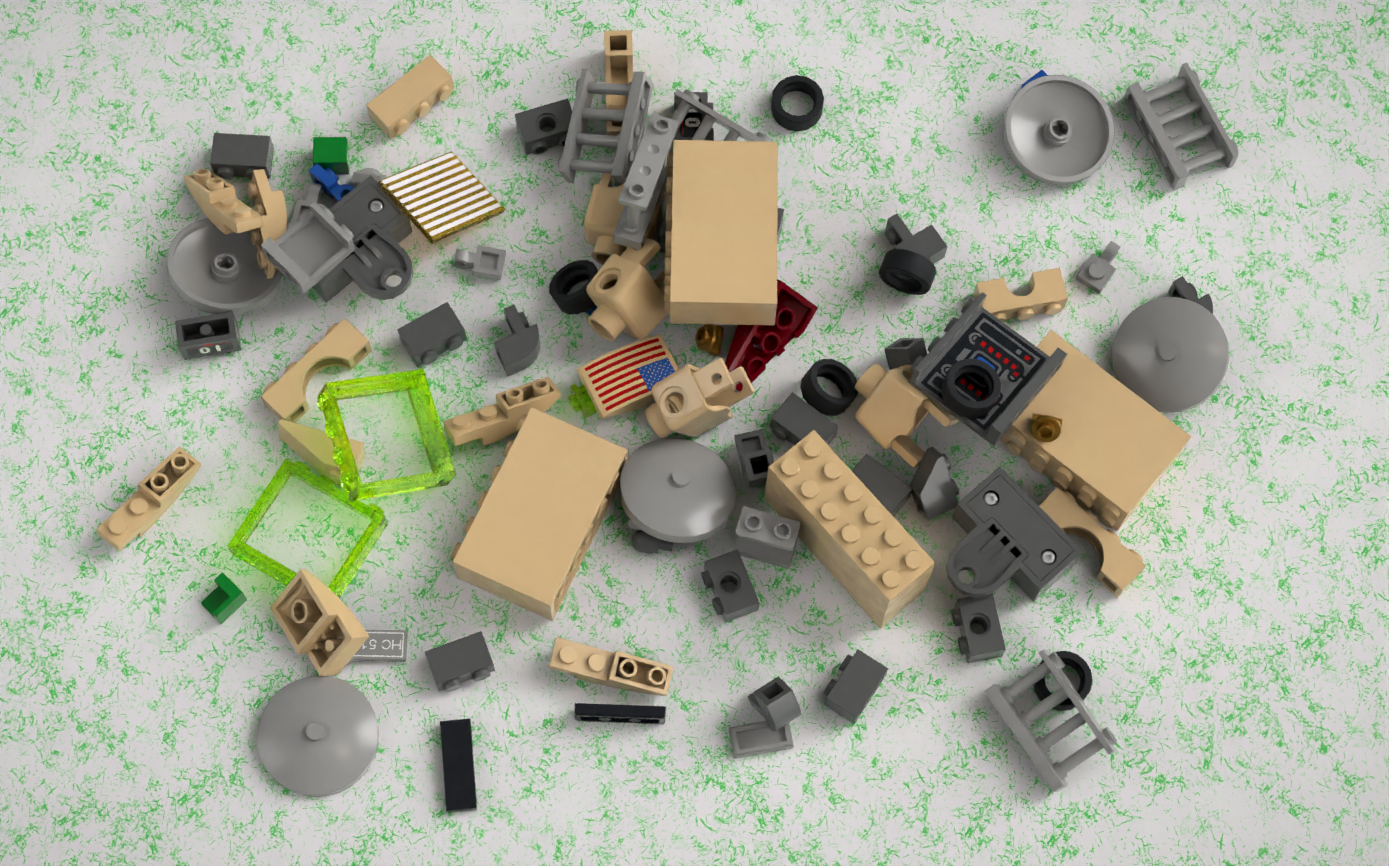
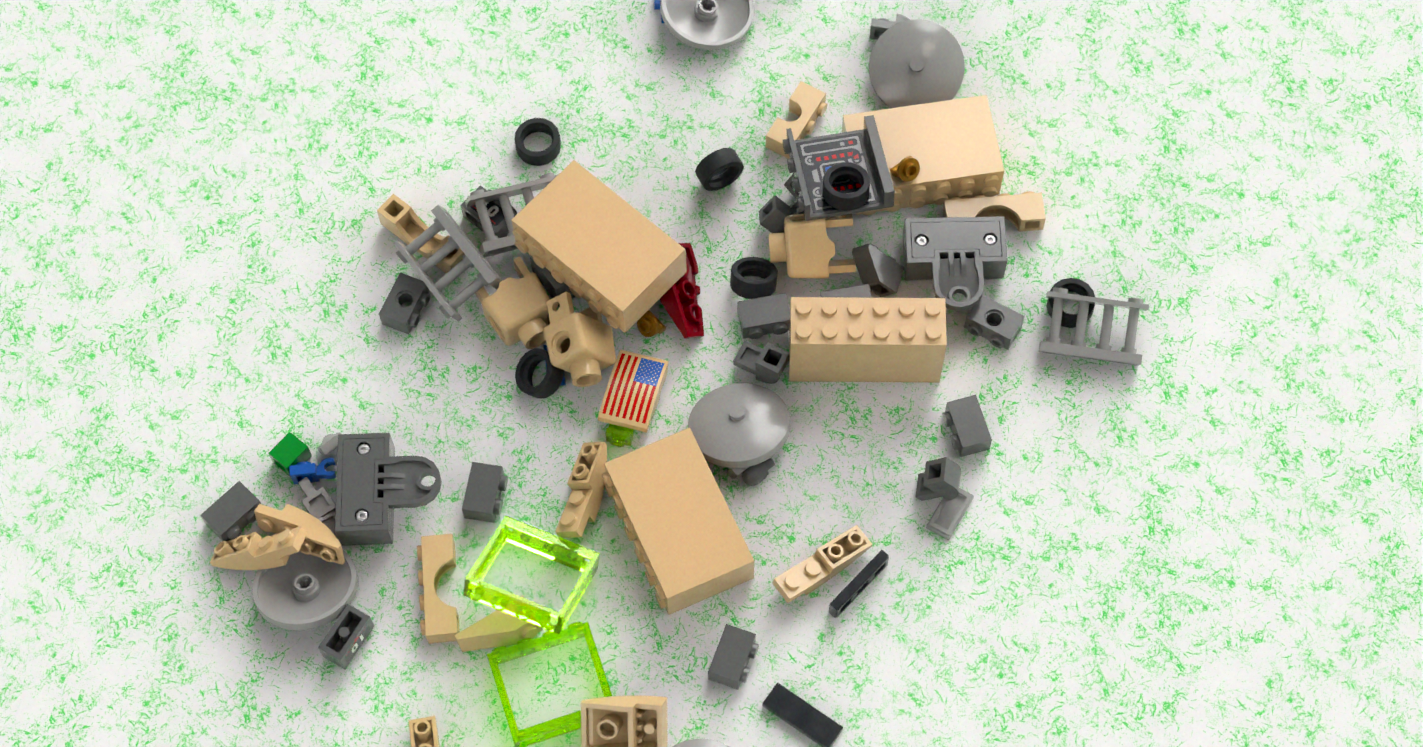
camera: 45 degrees left, 5 degrees down
(310, 248) = (355, 512): light grey panel -> none
(383, 646) = (679, 696): light grey tile -> none
(410, 97) = (298, 370): tan brick -> none
(441, 197) = (393, 406): piece -> none
(486, 261) = (462, 418): light grey plate -> none
(520, 348) = (545, 442): dark grey brick -> none
(645, 182) = (520, 262): light grey fence -> none
(696, 401) = (691, 349): tan piece -> none
(730, 568) = (823, 435): dark grey brick -> none
(766, 537) = (822, 395): light grey panel -> none
(925, 242) = (692, 155): dark grey brick -> none
(1098, 270) = (819, 64): light grey plate -> none

